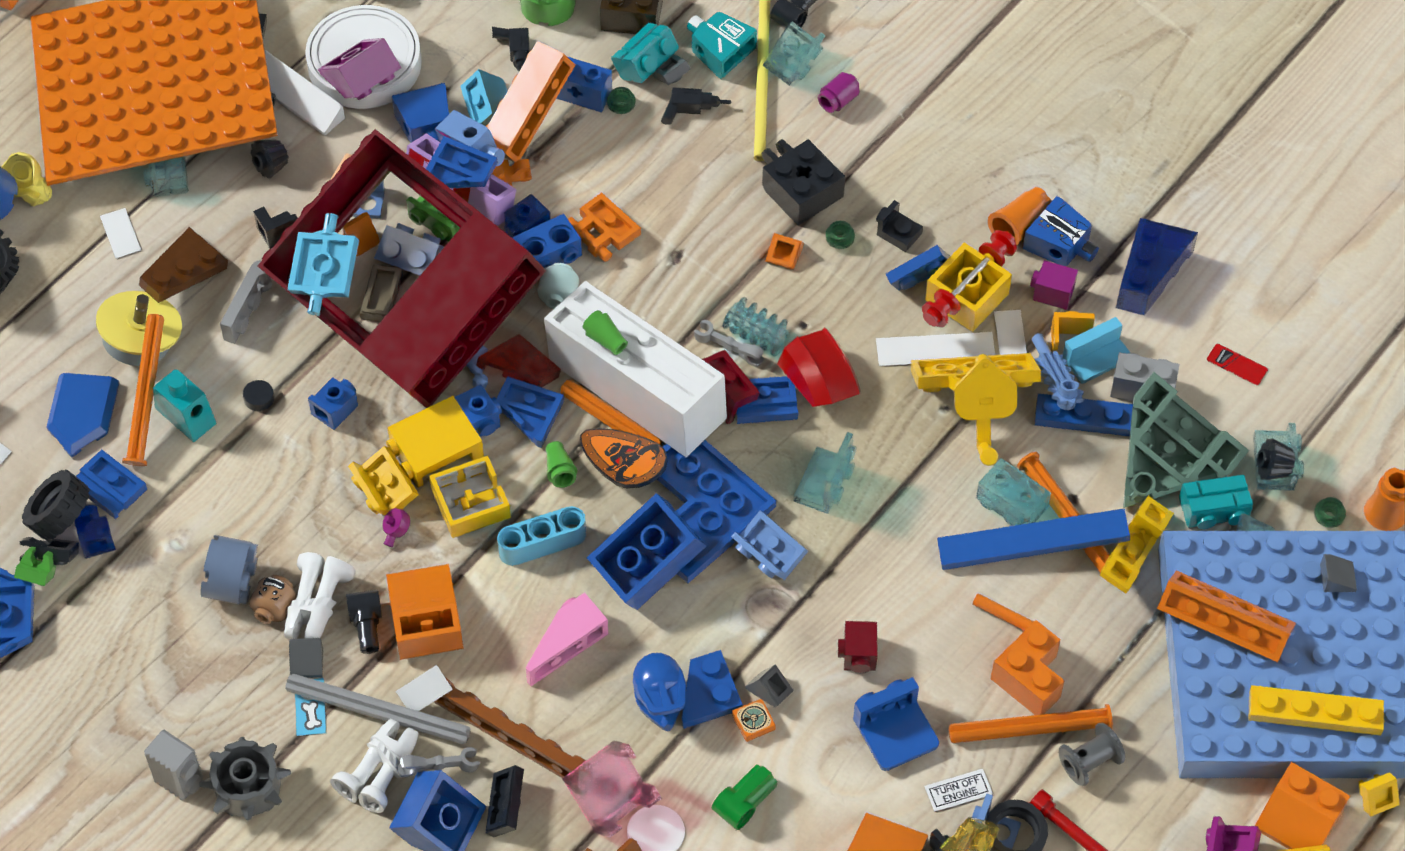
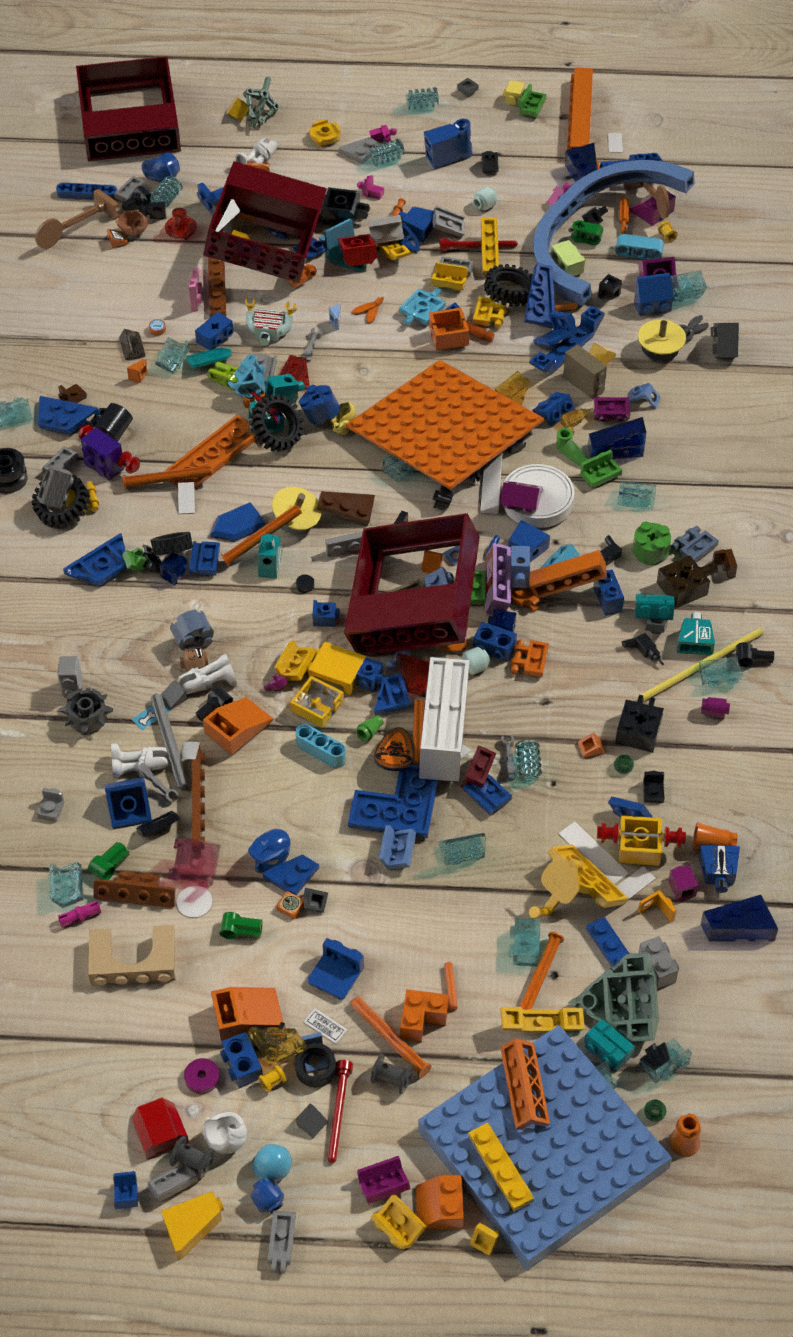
camera: 55 degrees right, 5 degrees down
(120, 233) = (350, 473): white sticker -> none
(323, 264) = (381, 549): medium azure plate -> none
(461, 165) = (496, 569): blue wing -> none
(570, 633) = (272, 792): bright pink slope -> none
(604, 332) = (439, 684): bright green cone -> none
(621, 100) = (617, 617): clear green plate -> none
(646, 551) = (342, 792): blue brick -> none
(819, 368) = (526, 804): red slope -> none
(859, 646) = (371, 925): dark red brick -> none
(1033, 539) = (506, 968): blue tile -> none
(1057, 375) = (620, 917): medium blue piece -> none
(1095, 350) = (658, 924): medium azure panel -> none
(1237, 364) = (717, 1007): red sticker -> none
(1337, 574) = (600, 1128): dark grey slope -> none

